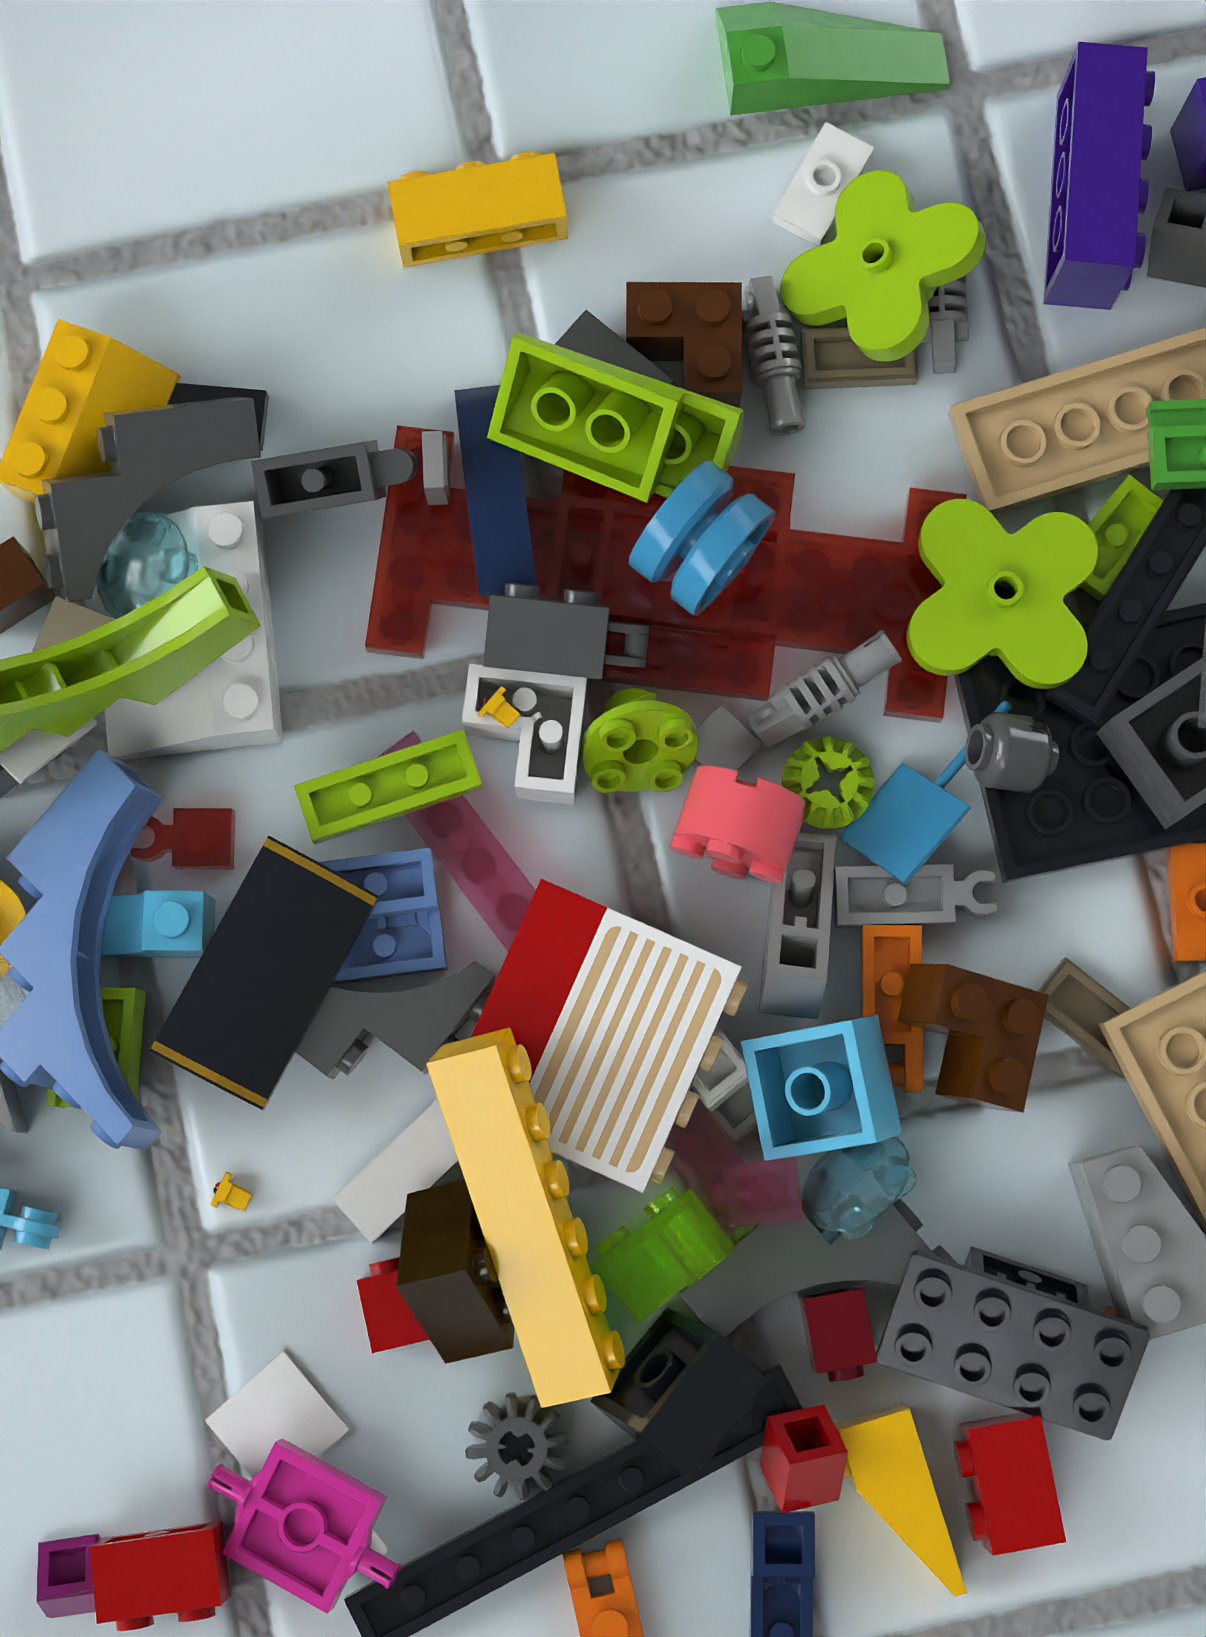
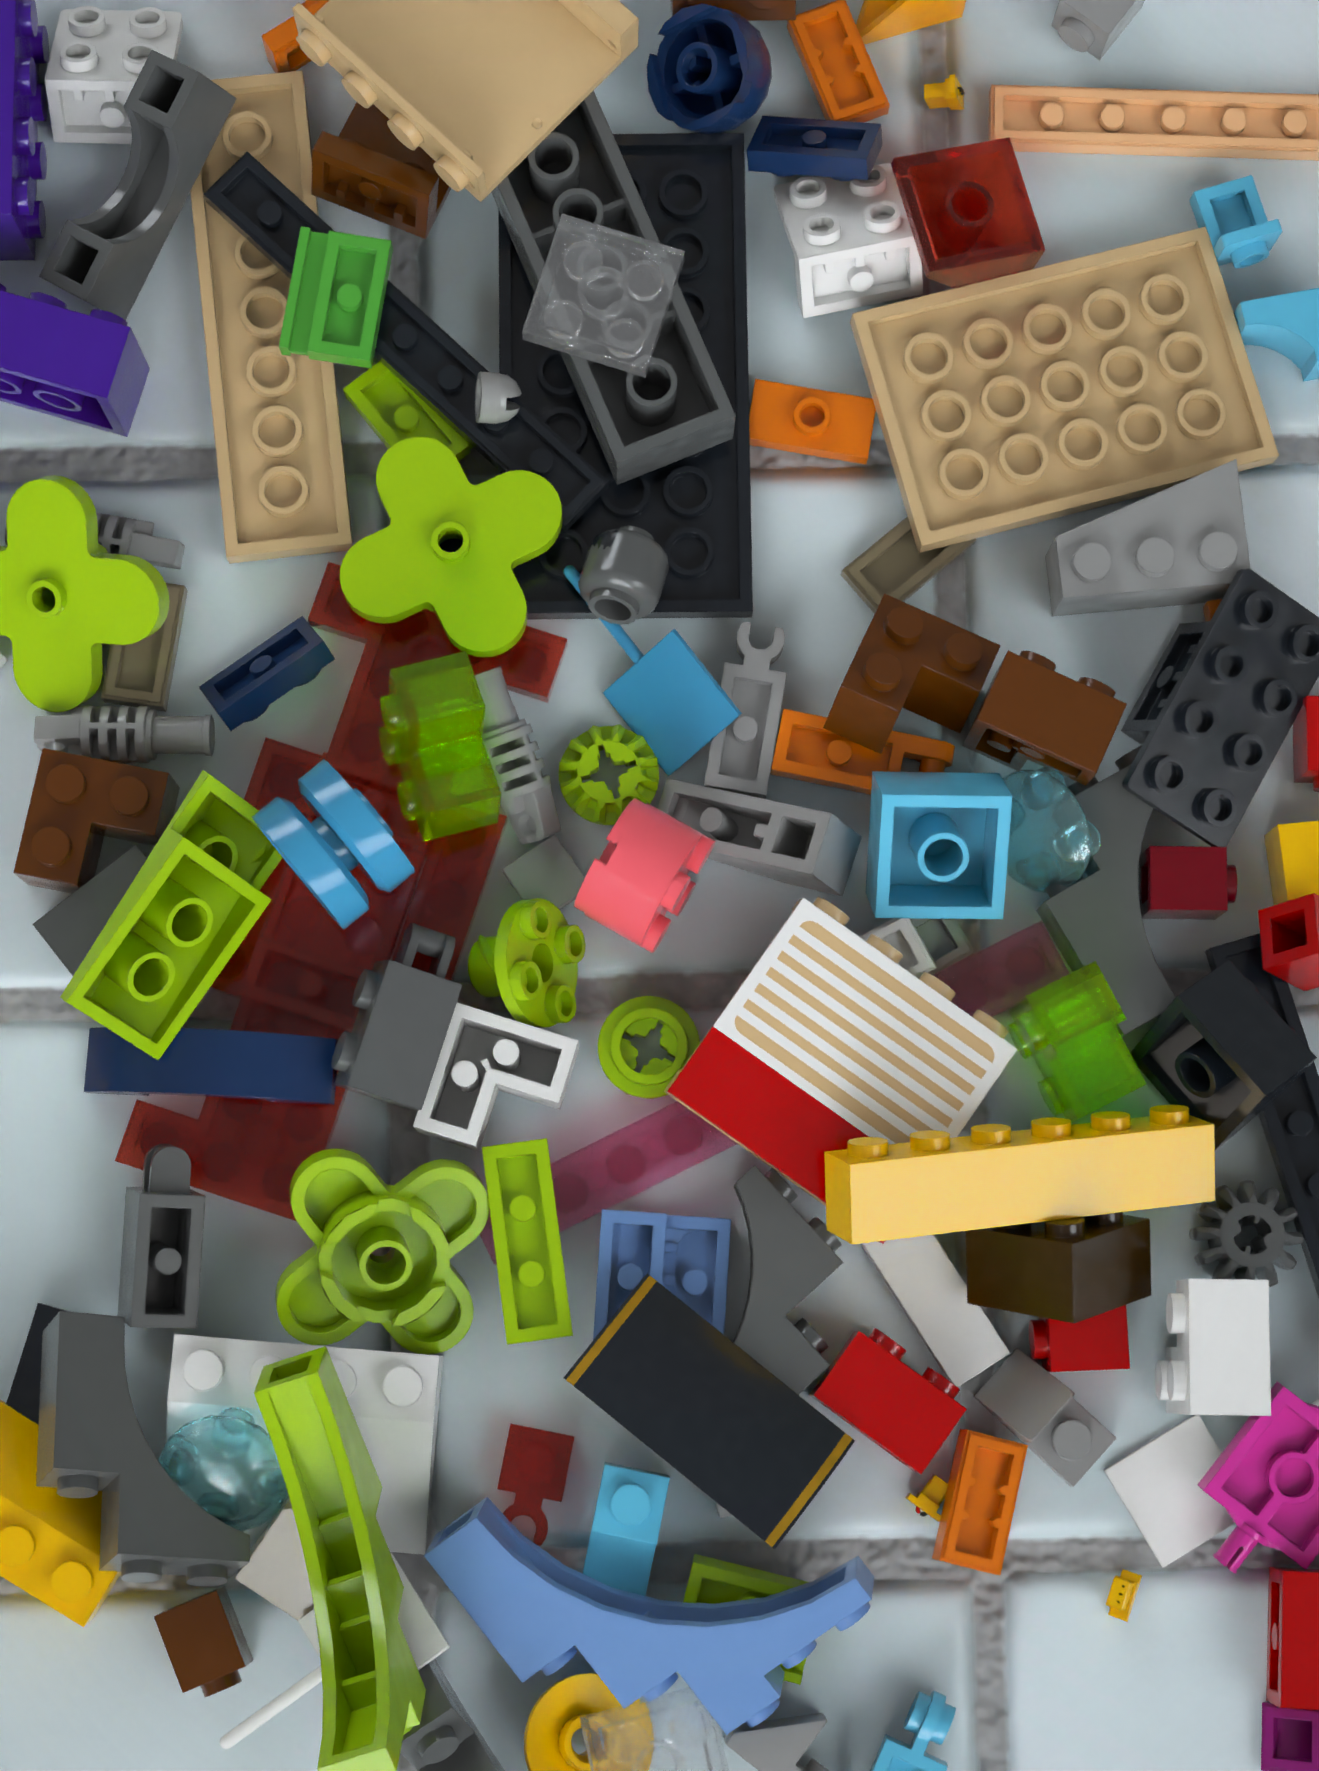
camera: 85 degrees left, 0 degrees up
(174, 1386) = (1123, 1594): none -> yellow piece
(232, 1238) = (979, 1502): none -> orange plate
(308, 1139) = (890, 1400): none -> red brick
(319, 1286) = (1045, 1416): none -> light grey slope
(387, 689) = (409, 1288): none -> lime plant
(401, 1433) = (1220, 1349): none -> white brick
(436, 467) = (179, 1122): light grey tile -> none
(499, 709) = (471, 1101): yellow piece -> none
(611, 852) = (637, 1019): none -> lime gear
(757, 1193) = (1036, 932): clear pink bracket -> none
(824, 609) = (437, 741): none -> clear neon green brick
(853, 463) = (267, 673): none -> dark blue plate
(962, 1165) = (1045, 718): none -> reddish brown brick
(1149, 600) = (492, 396): none -> light grey hinge

